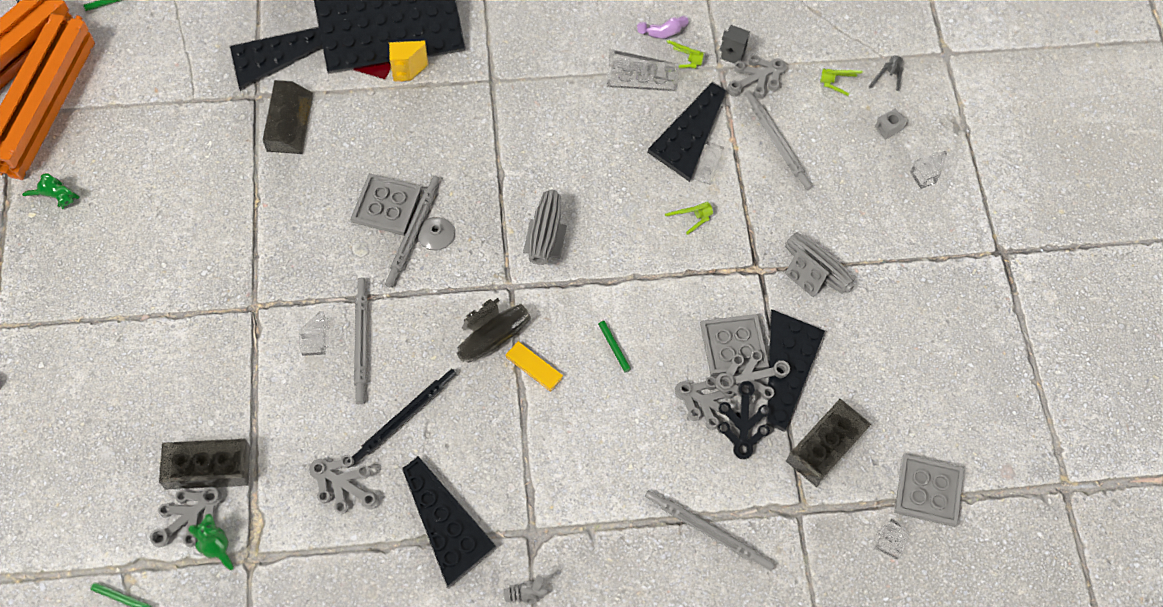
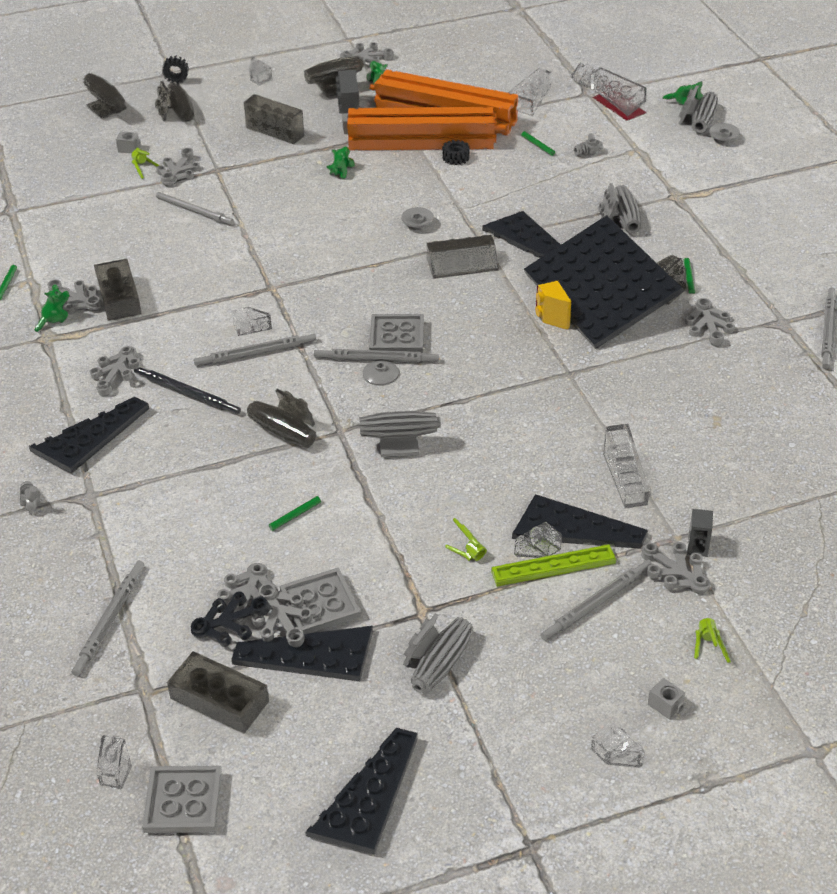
camera: 80 degrees right, 20 degrees down
(94, 84) = (455, 152): none -> black tyre
(98, 337) = (219, 217): none -> light grey bar
(196, 135) = (417, 217): none -> light grey dish
(534, 366) = (257, 461): yellow tile -> none
(665, 30) = (699, 480): lavender arm -> none
(695, 56) = (672, 511): lime plant -> none
(731, 160) = (553, 565): none -> lime tile
(894, 66) = (758, 692): dark grey plant -> none
(957, 356) = (366, 801): none -> black wing

